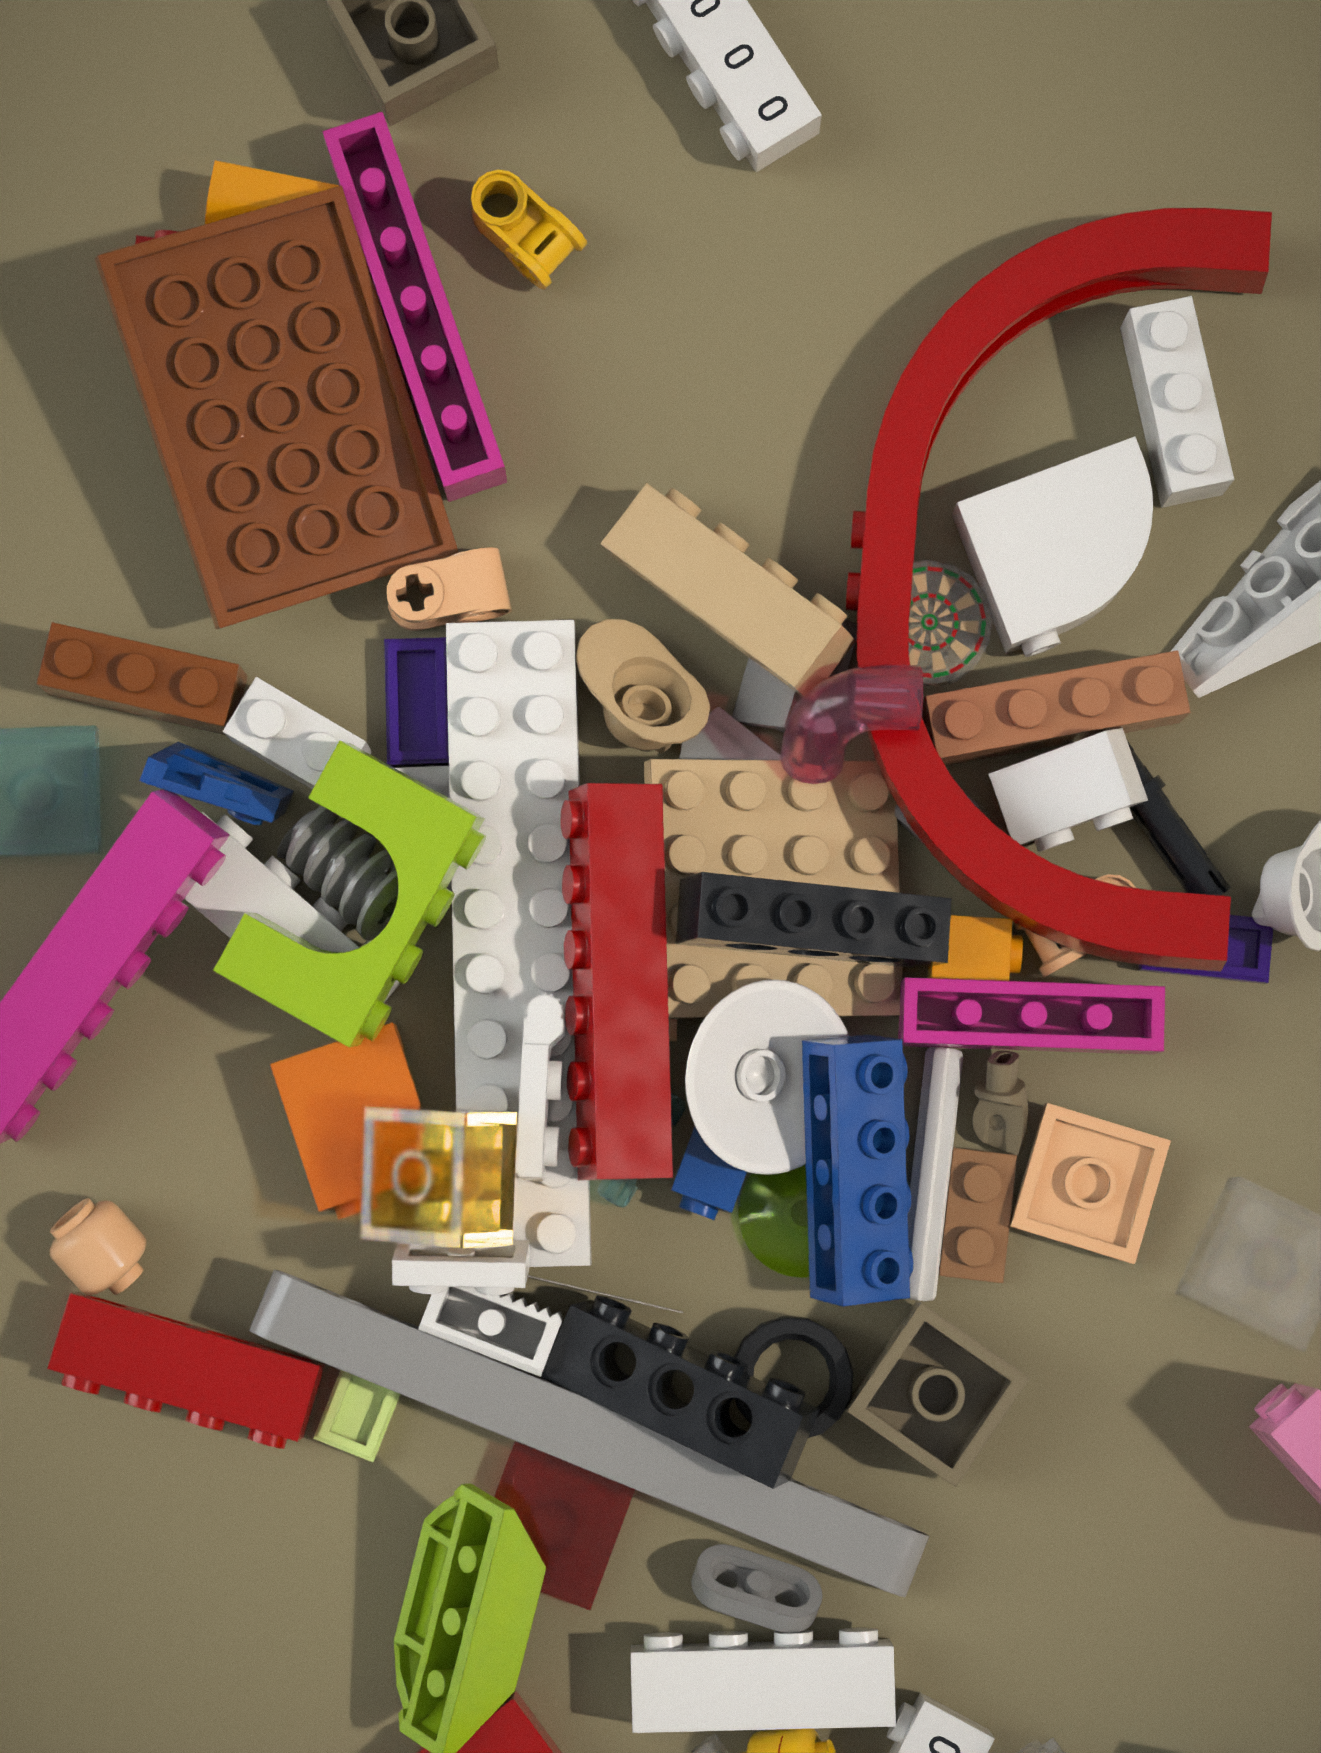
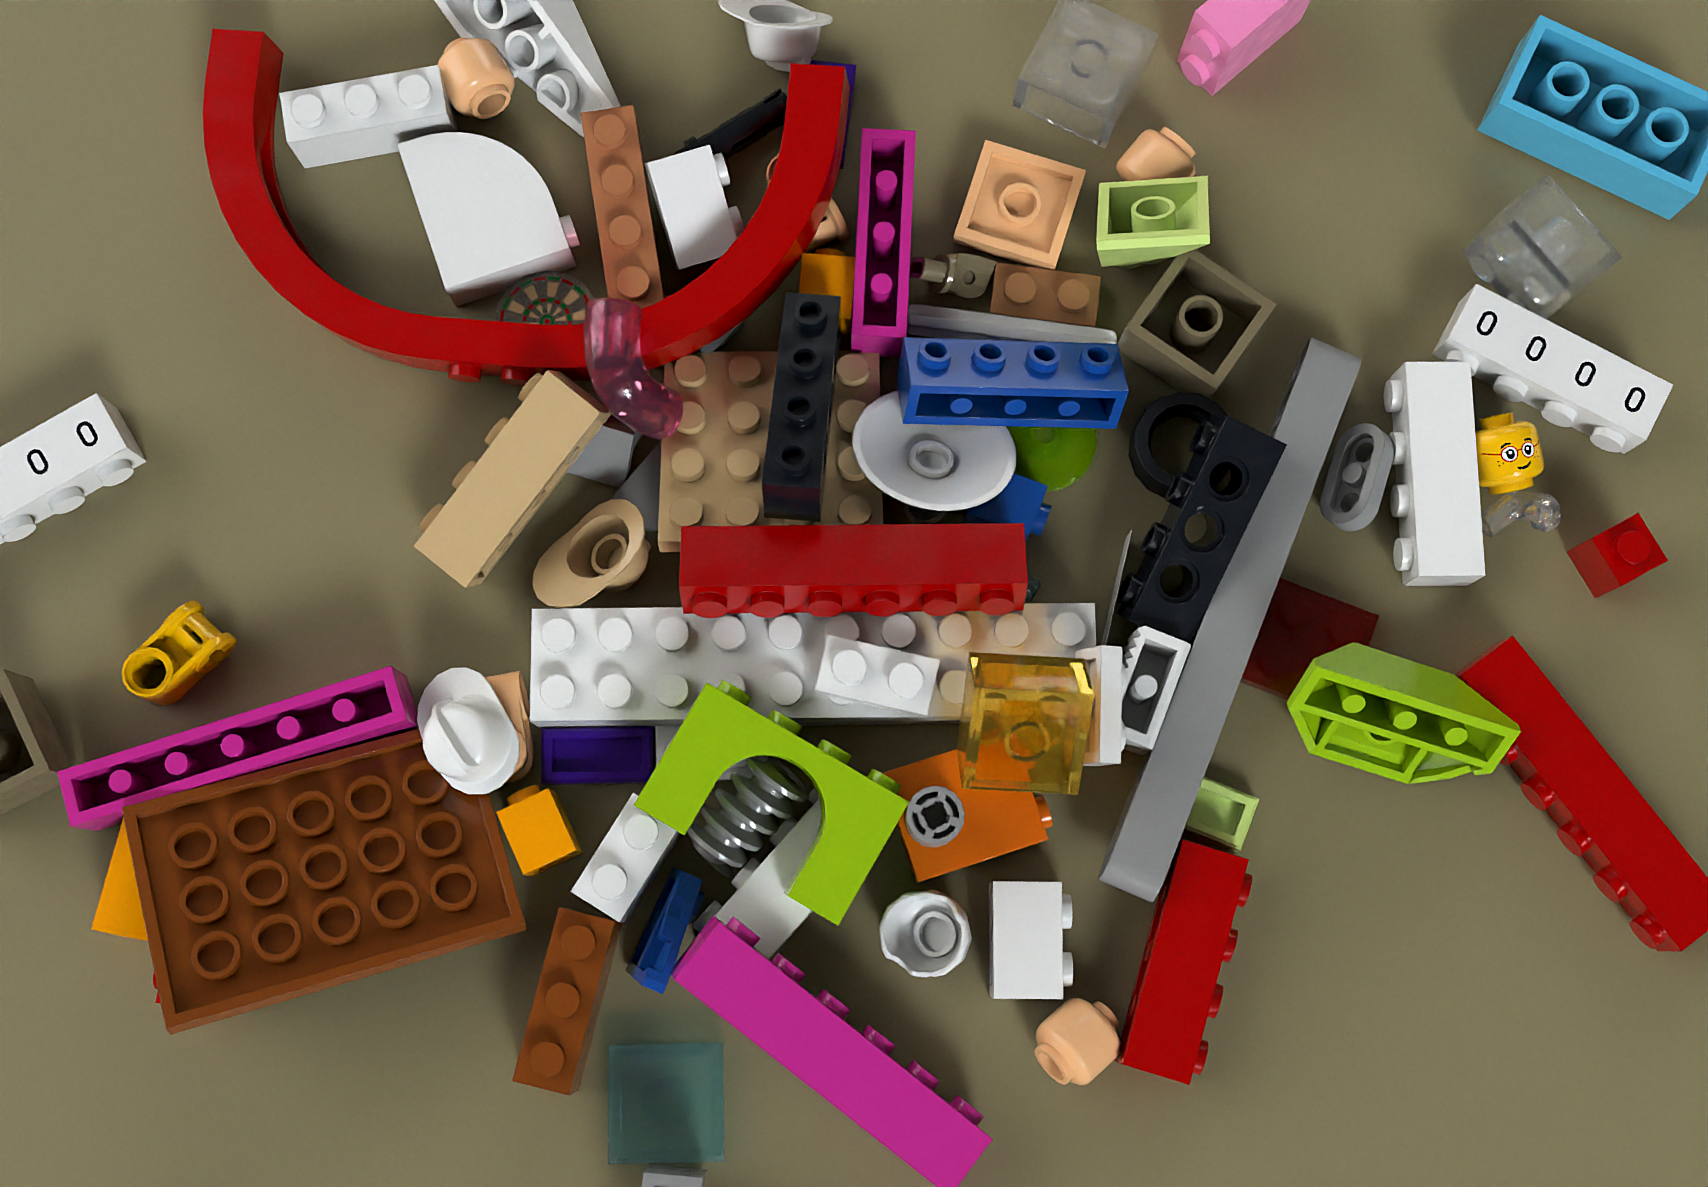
camera: 90 degrees left, 5 degrees down
(209, 1190) = (1028, 940): none -> white brick
(216, 1074) = (925, 933): none -> white hair
(330, 639) = (538, 830): none -> light orange brick
(348, 1081) = (930, 825): none -> light grey wheel
(435, 553) = (467, 732): none -> white piece
(494, 1013) = (877, 676): none -> white plate
(539, 1083) = (942, 637): white hinge -> none
(1062, 1336) = (1151, 220): none -> yellowish green slope
(1141, 1350) = (1157, 157): none -> light nougat head
(1231, 524) = (476, 77): none -> light nougat head

